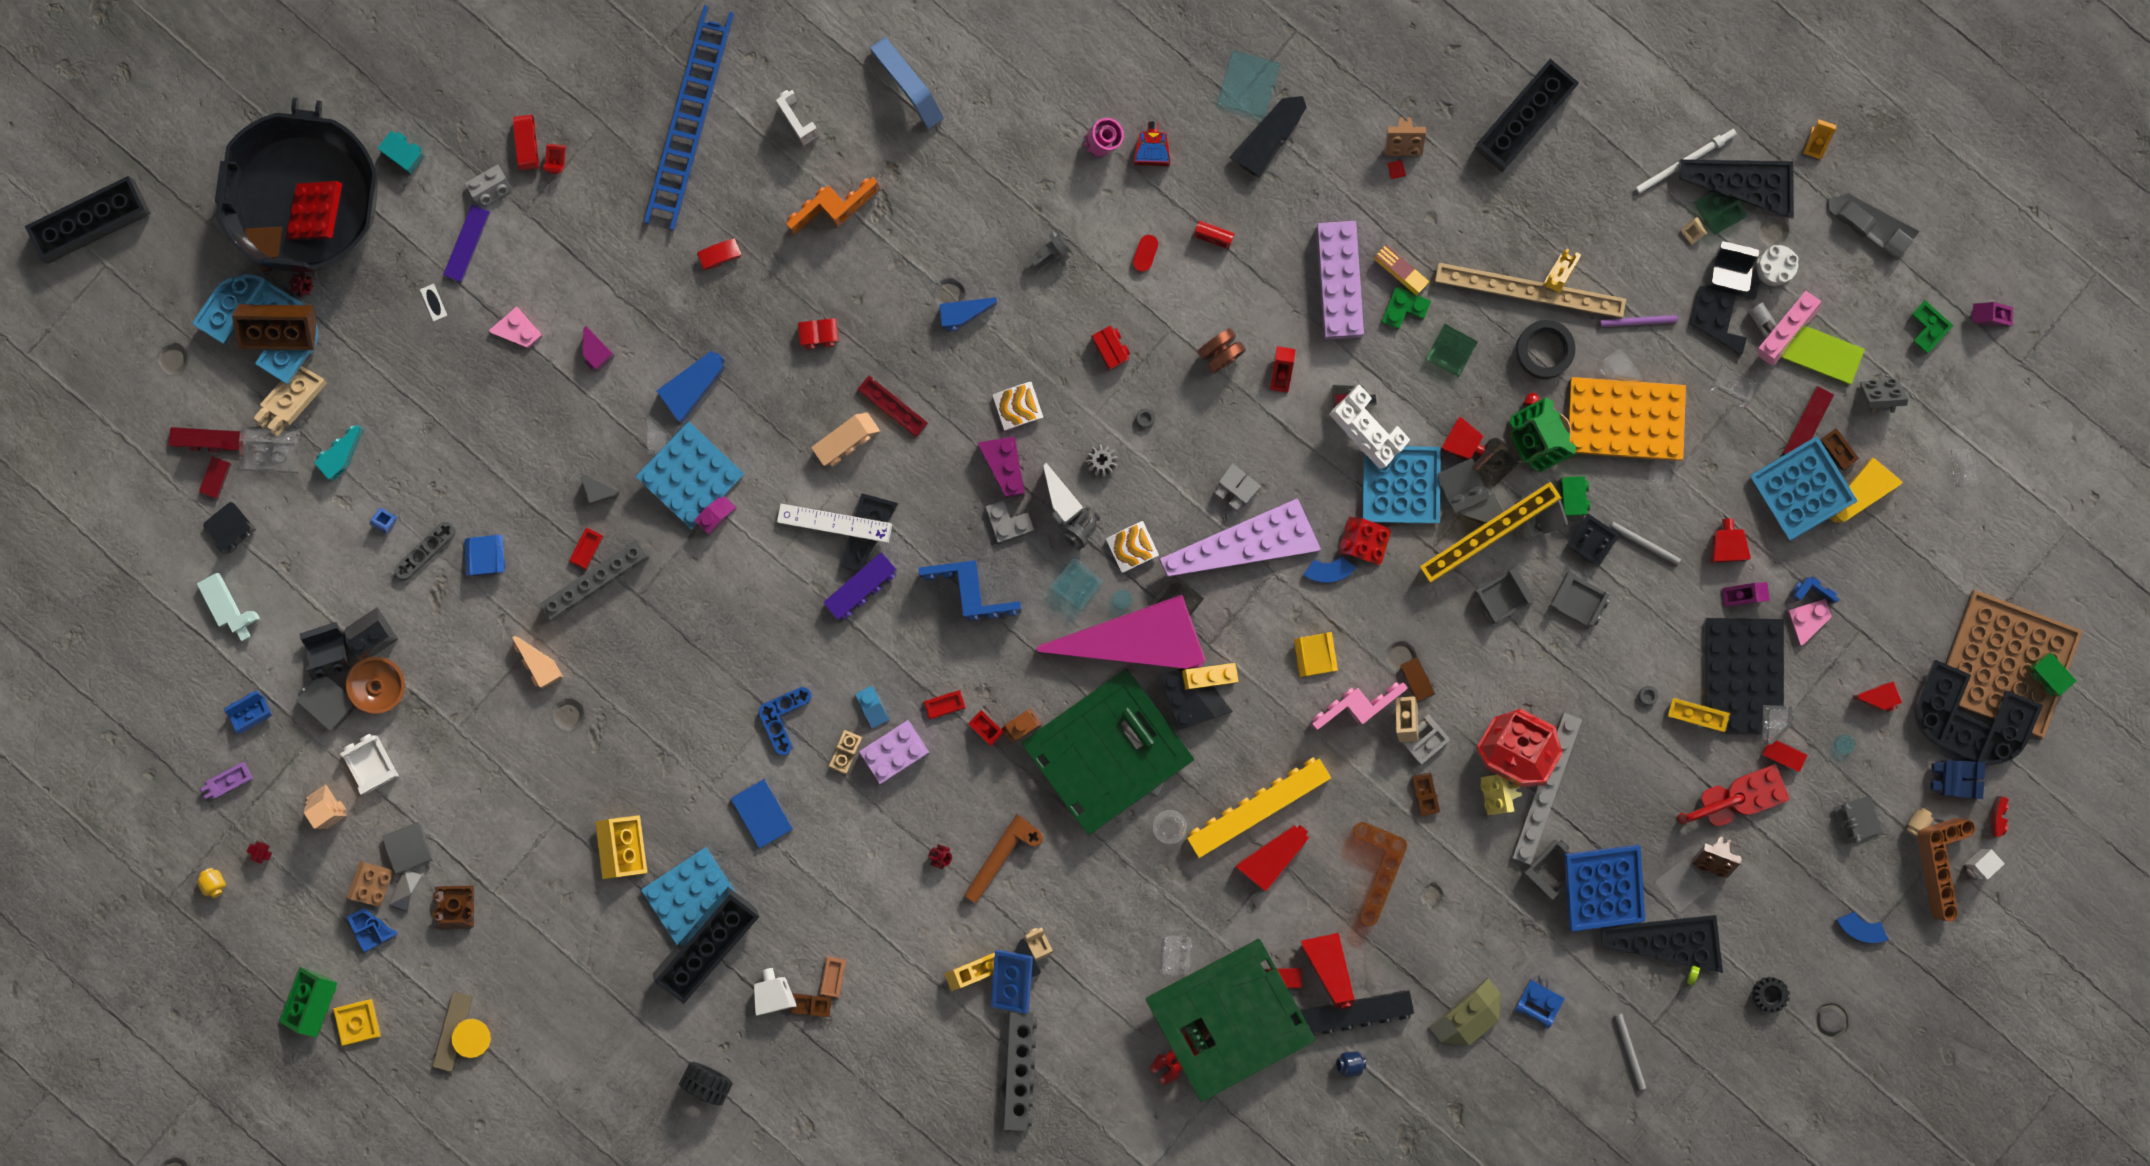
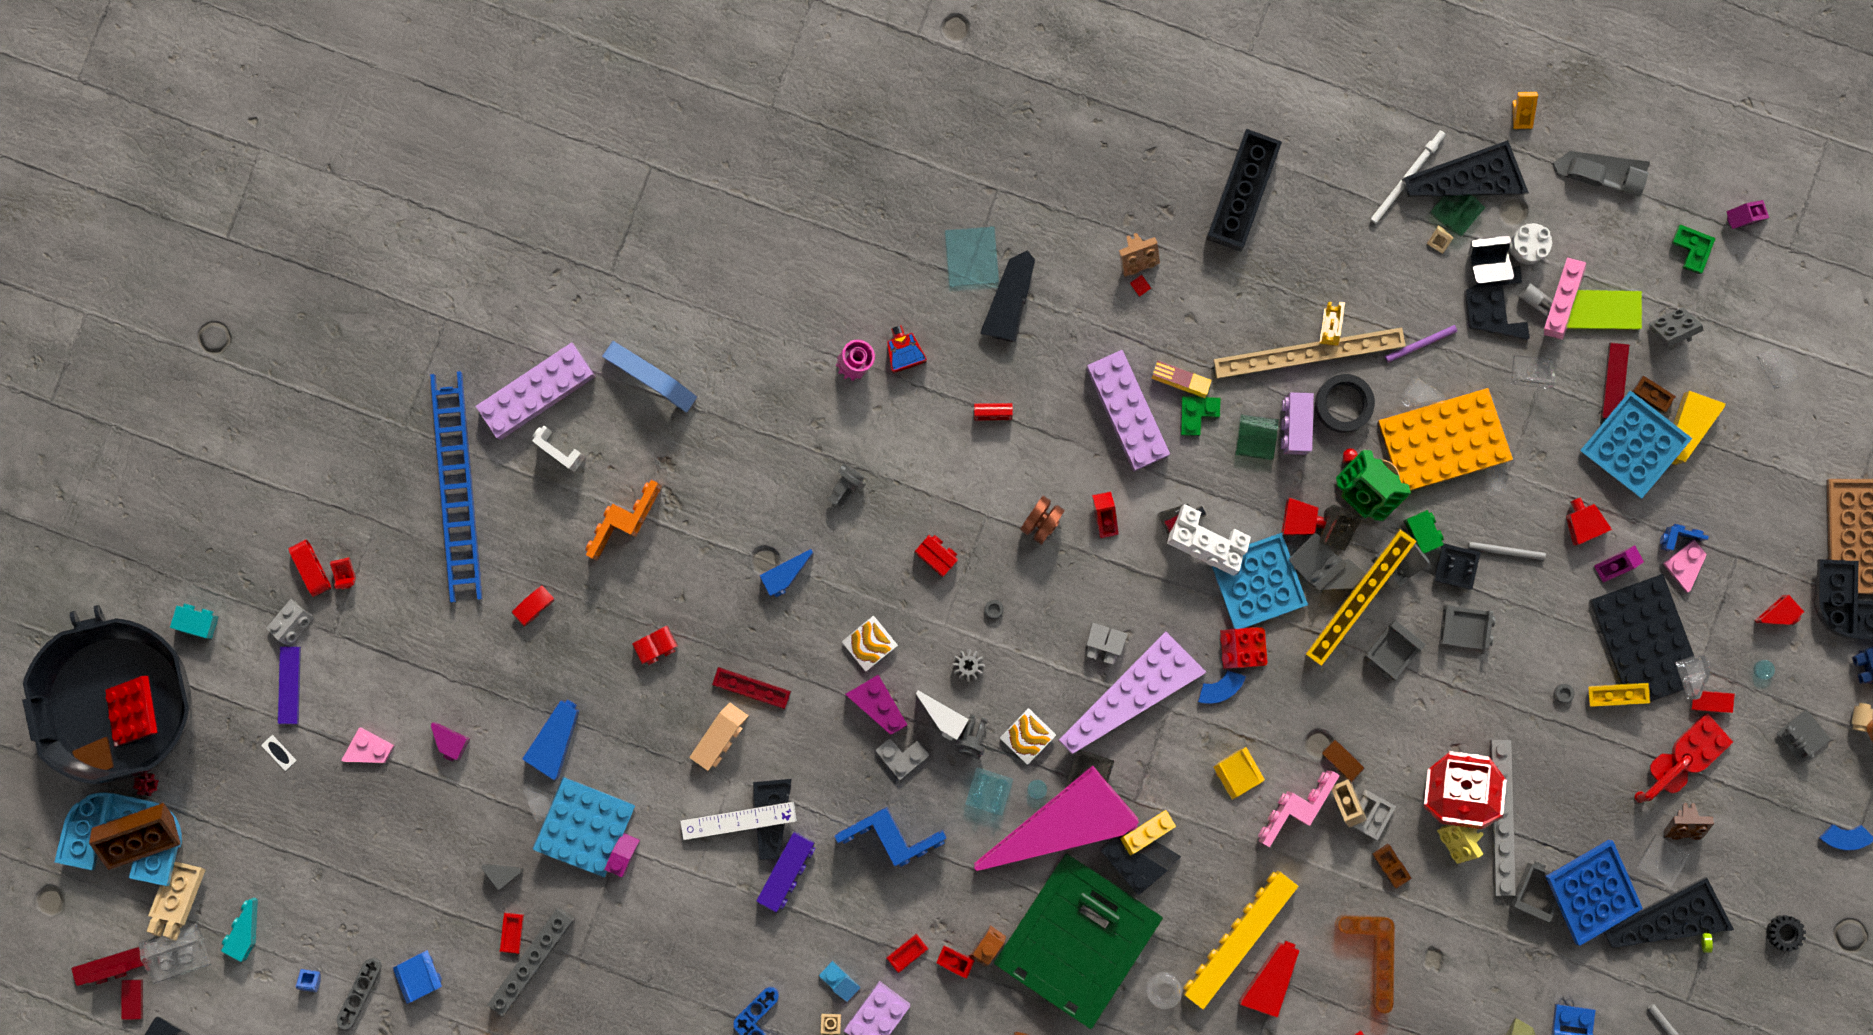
camera: 20 degrees left, 0 degrees up
(796, 57) = (535, 391): none -> lavender brick
(1145, 253) = (935, 453): red tile -> none
(1493, 350) = (1297, 423): none -> lavender brick

